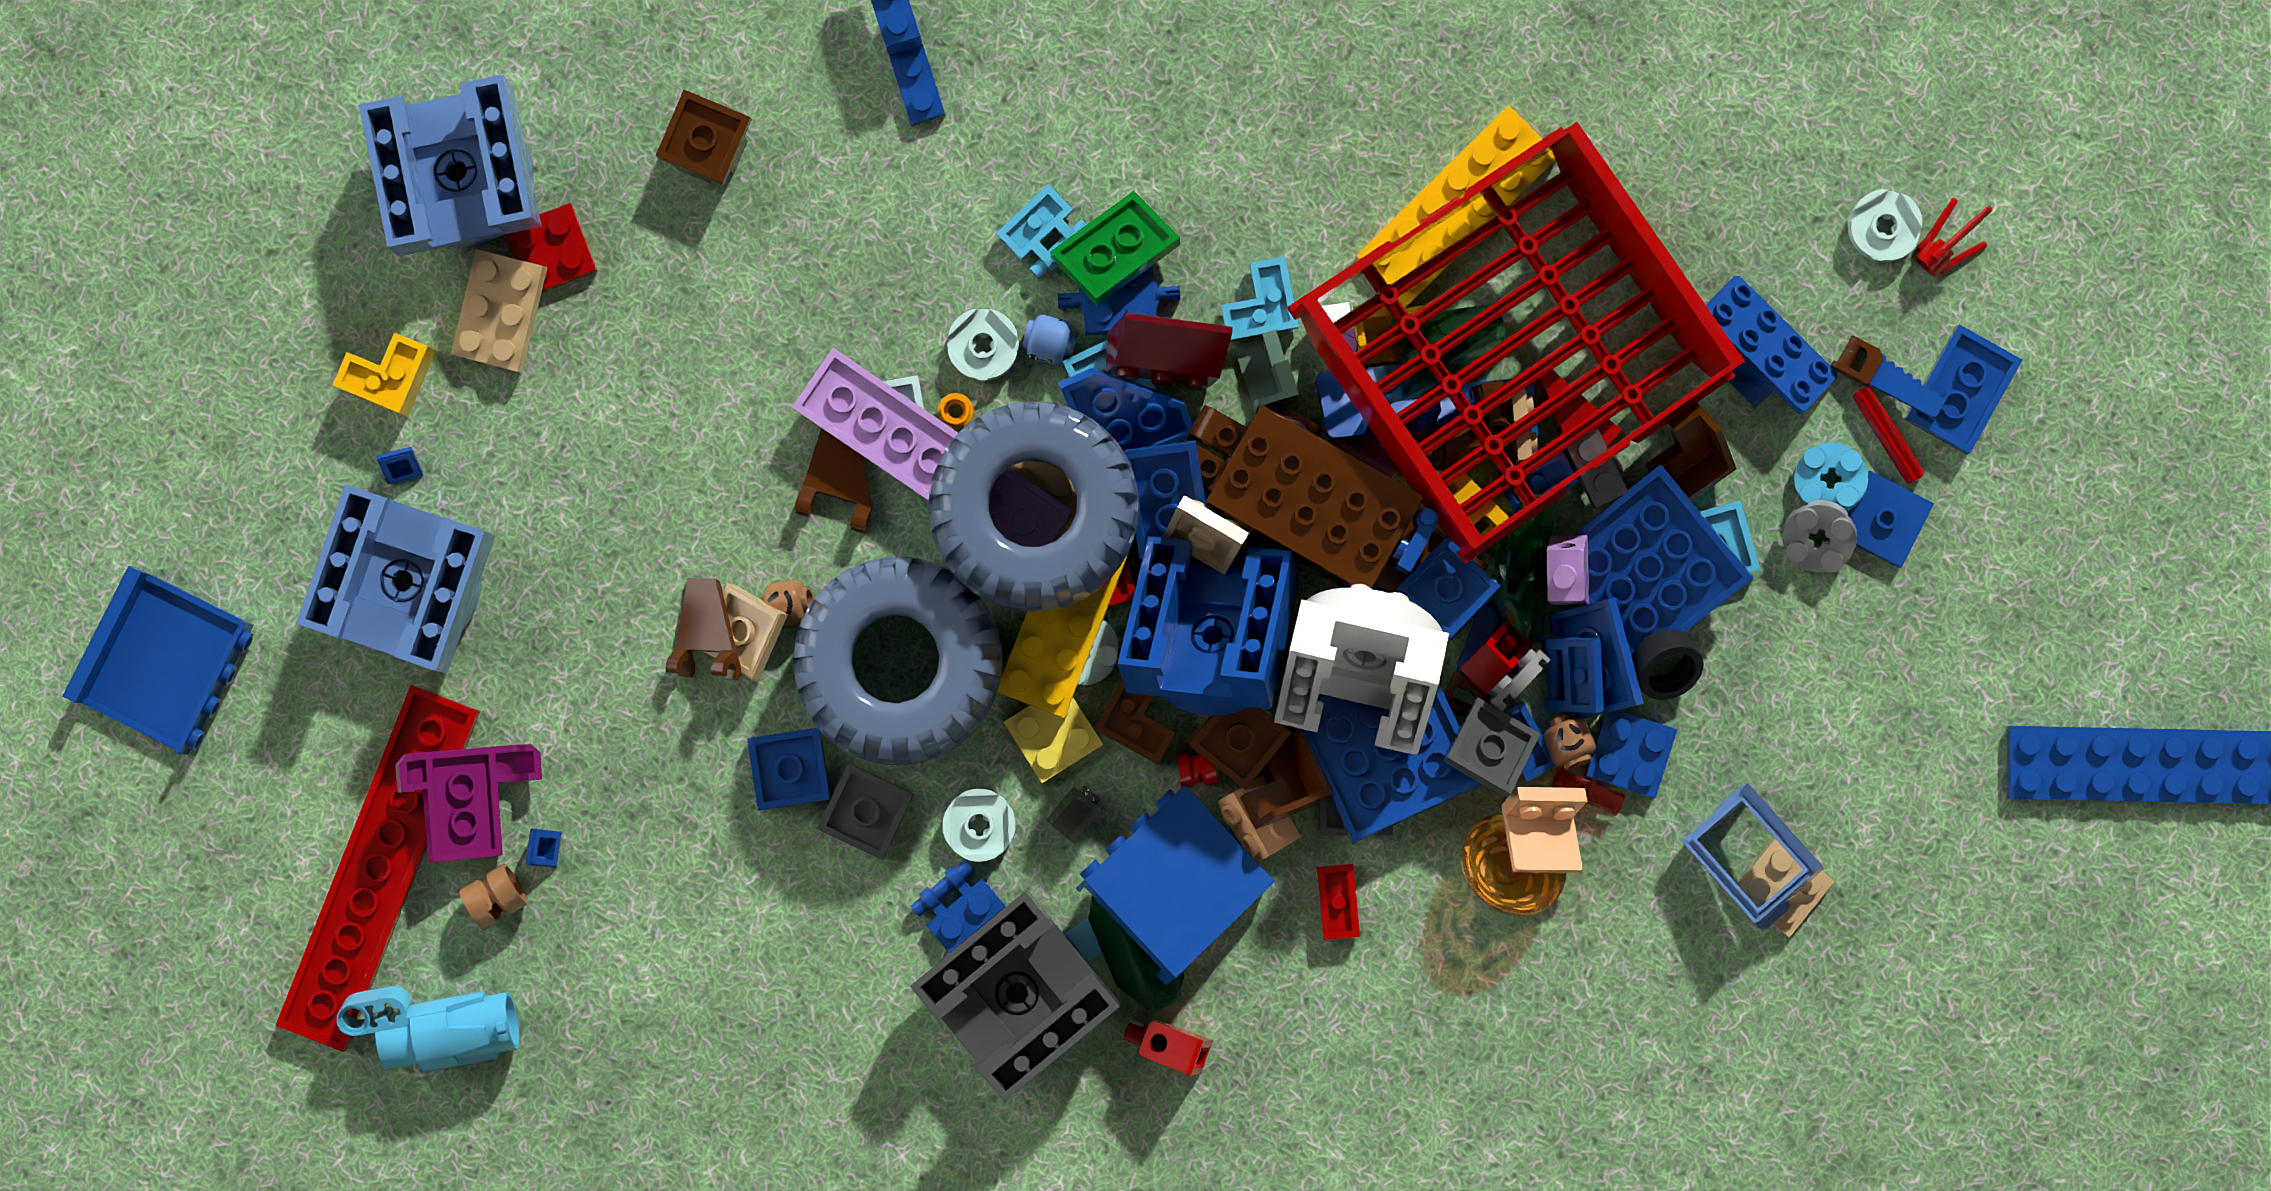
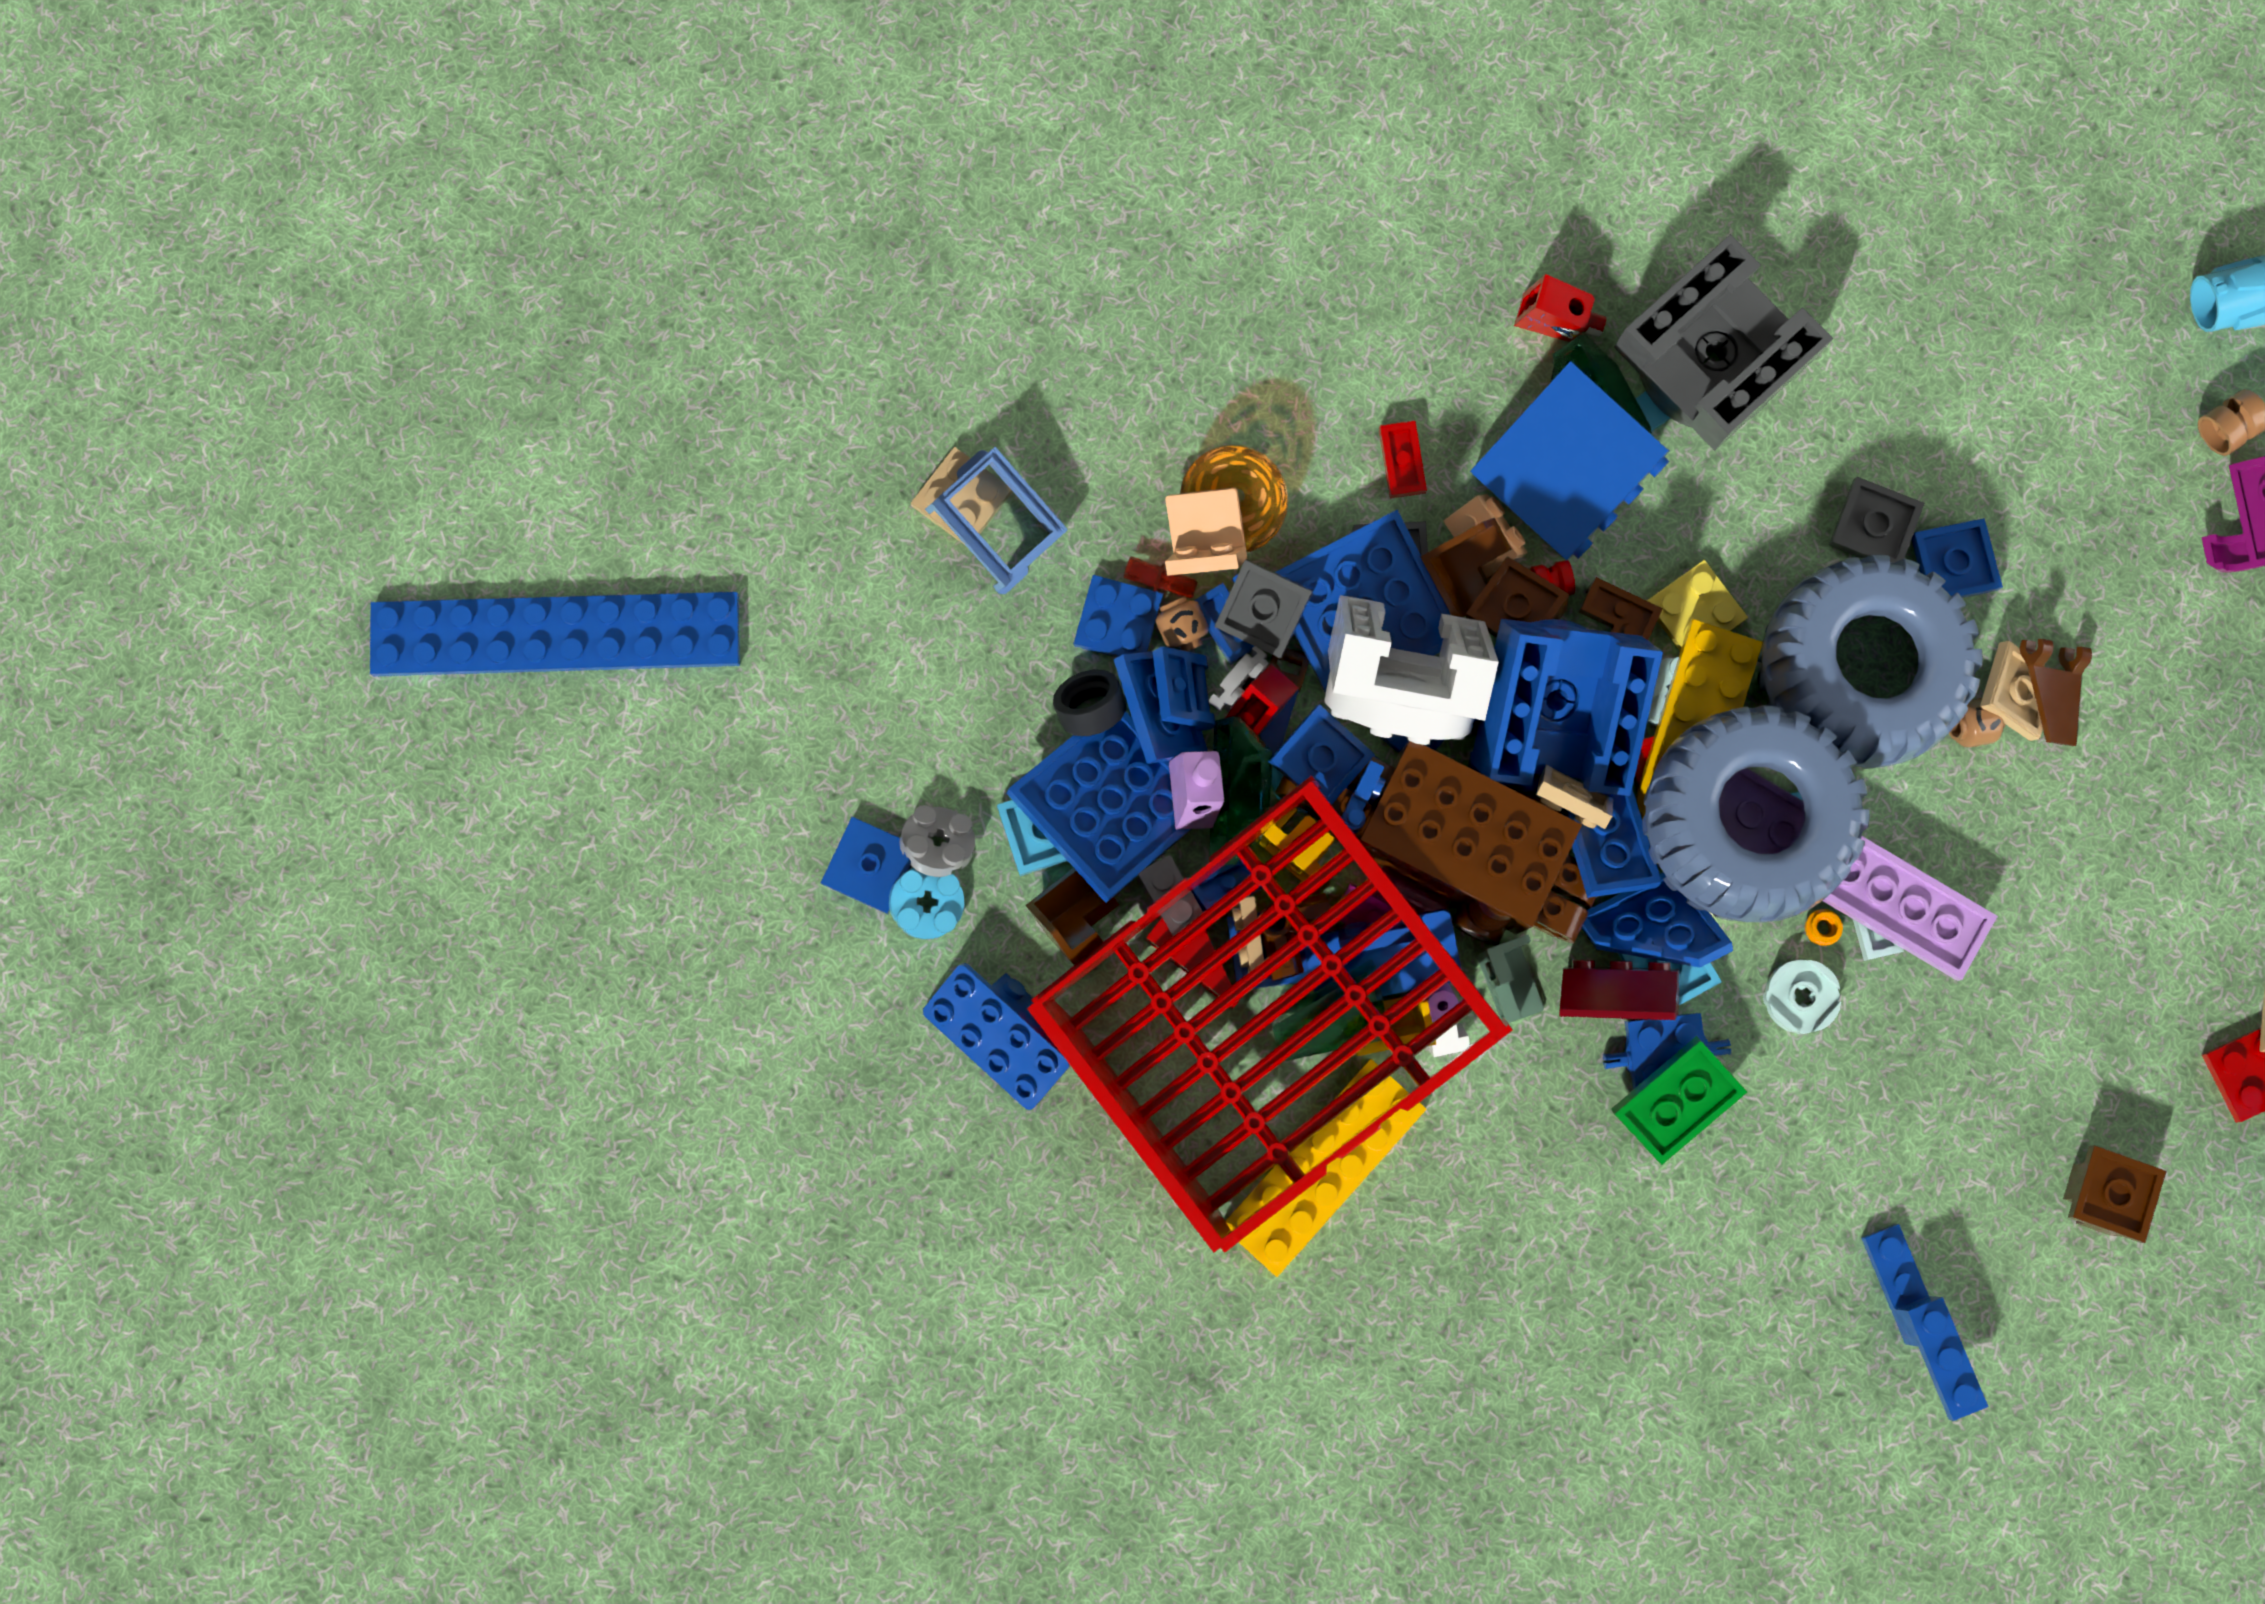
camera: 170 degrees right, 5 degrees down
(543, 848) = (2190, 473): blue slope -> none
(839, 474) = (1934, 853): reddish brown flag -> none
(963, 916) = (1767, 430): blue plate -> none
(964, 810) = (1776, 501): light aqua plate -> none
(1034, 224) = (1760, 1125): medium azure plate -> none
(1049, 339) = (1736, 1004): medium blue head -> none
(1075, 813) = (1670, 530): clear smoke brick -> none
(1269, 308) = (1510, 1055): medium azure plate -> none
(1887, 378) = (870, 1008): blue piece -> none
(1888, 205) = (873, 1190): light aqua plate -> none
(1888, 434) = (868, 951): red axle -> none
(1935, 256) = (823, 1140): red plant -> none
(1973, 379) = (793, 1001): blue plate -> none

